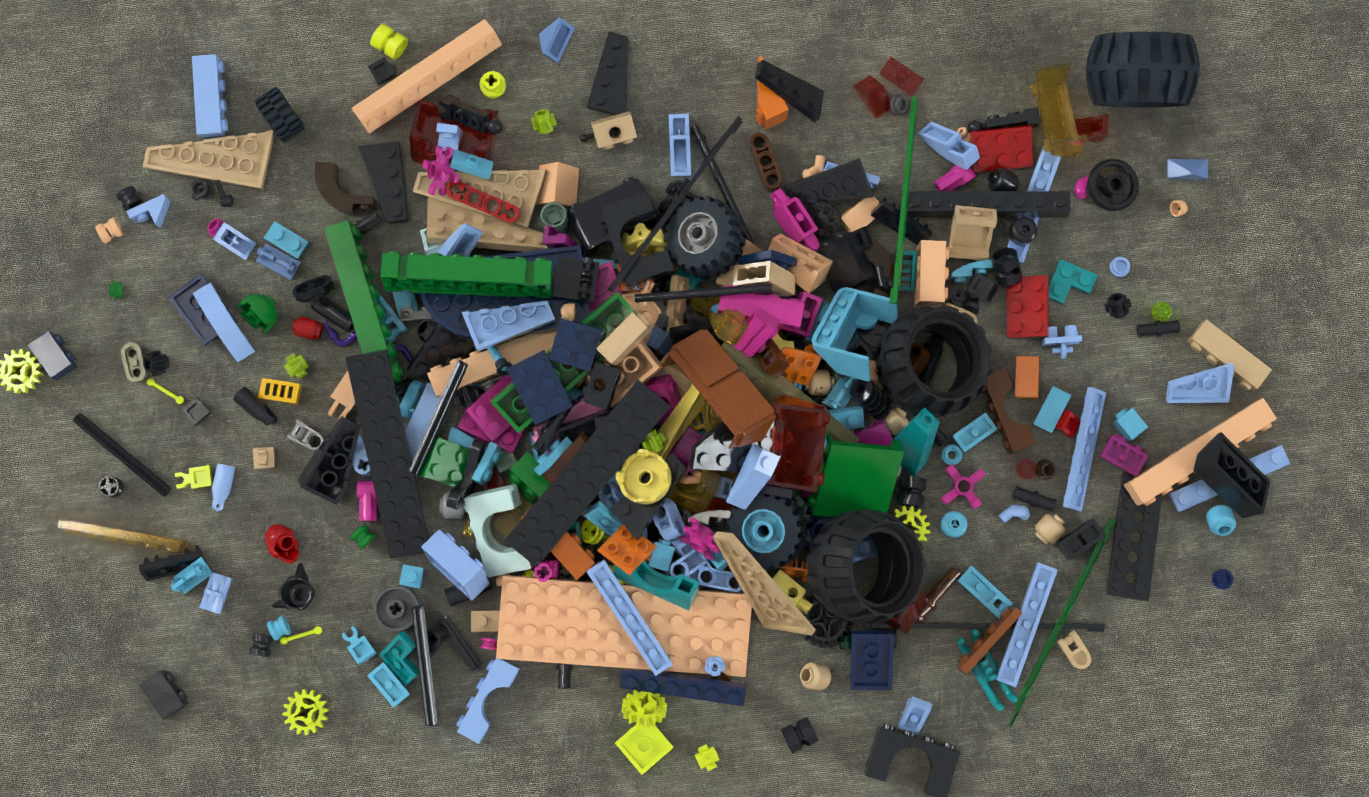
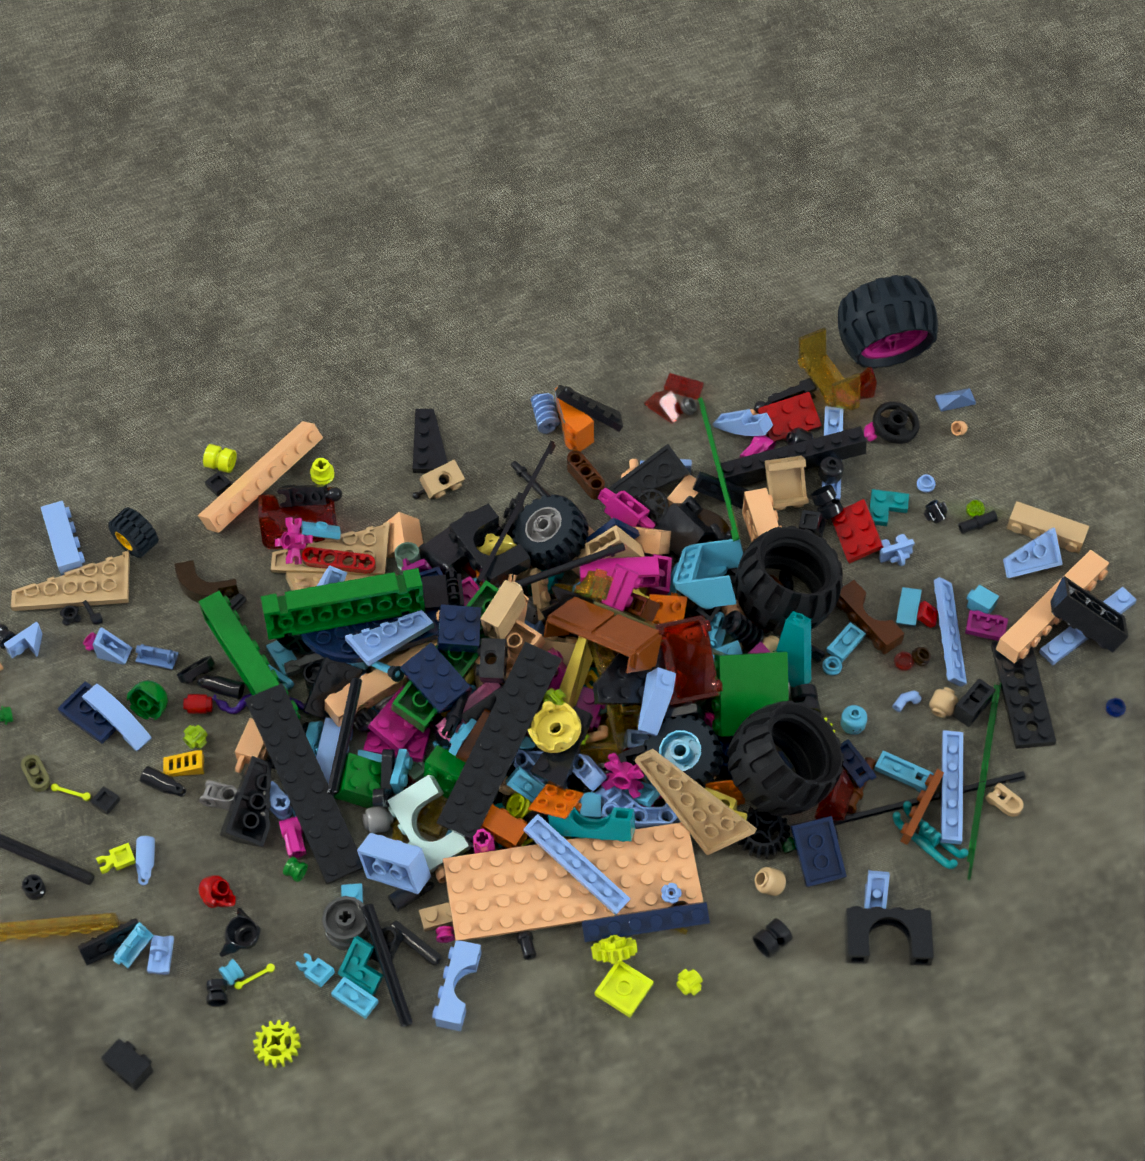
camera: 15 degrees left, 25 degrees down
(156, 363) = (57, 766): black gear -> none
(264, 458) = (181, 826): tan tile -> none
(286, 240) = (160, 638): medium azure plate -> none
(386, 174) = (243, 565): black wing -> none
(449, 136) = (293, 508): light blue slope -> none
(543, 121) = (376, 488): lime gear -> none
(555, 39) = (370, 425): medium blue slope -> none
(679, 144) = (503, 476): light blue slope -> none
(742, 73) = (545, 412): none -> light blue piece
(913, 262) = (740, 515): teal slope -> none
(937, 573) = (855, 764): none -> dark blue plate
(964, 273) = (791, 517): medium azure slope -> none
(972, 499) = (851, 681): dark pink pin -> none
(1027, 377) = (877, 586): orange hinge -> none
(1034, 498) = (919, 683): black pin -> none
(1221, 520) = (1094, 657): medium azure head -> none

